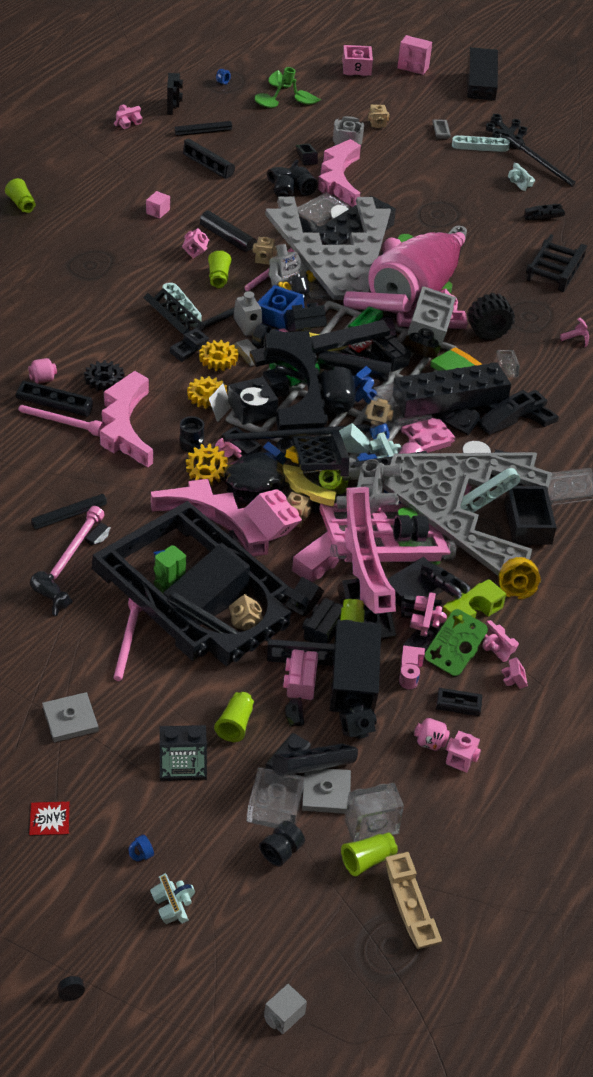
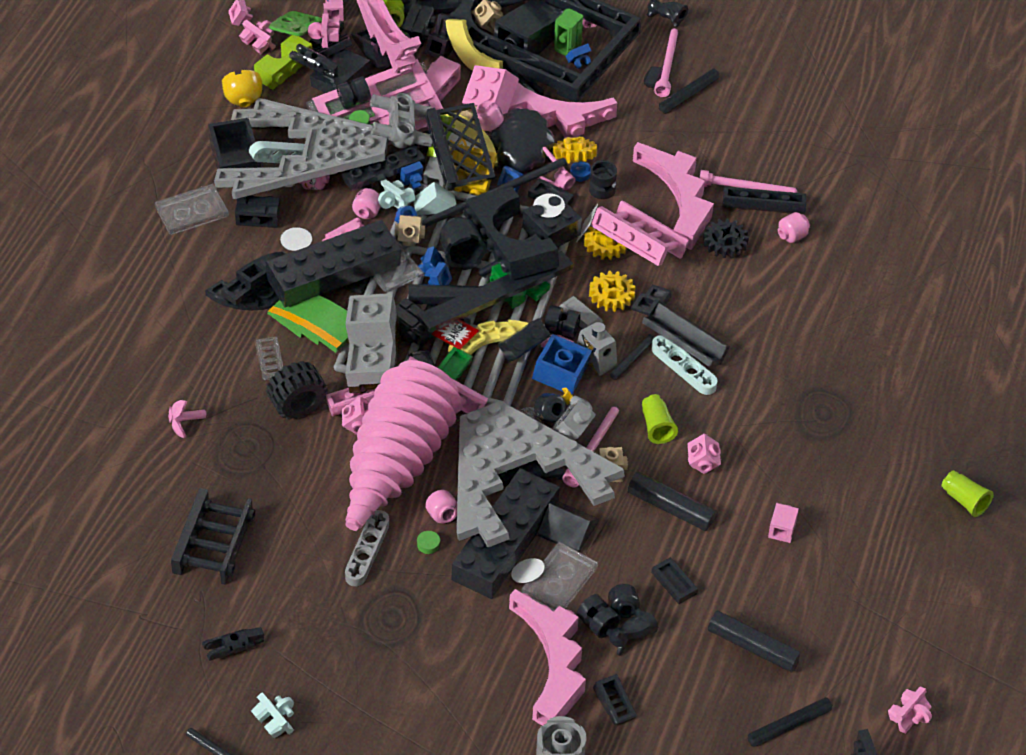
camera: 170 degrees right, 5 degrees up
(185, 363) = (640, 232): none -> bright pink fence
(245, 196) = (674, 580): none -> black tile
(283, 574) = (464, 46): none -> light yellow tile
(284, 480) = (489, 115): none -> bright pink head

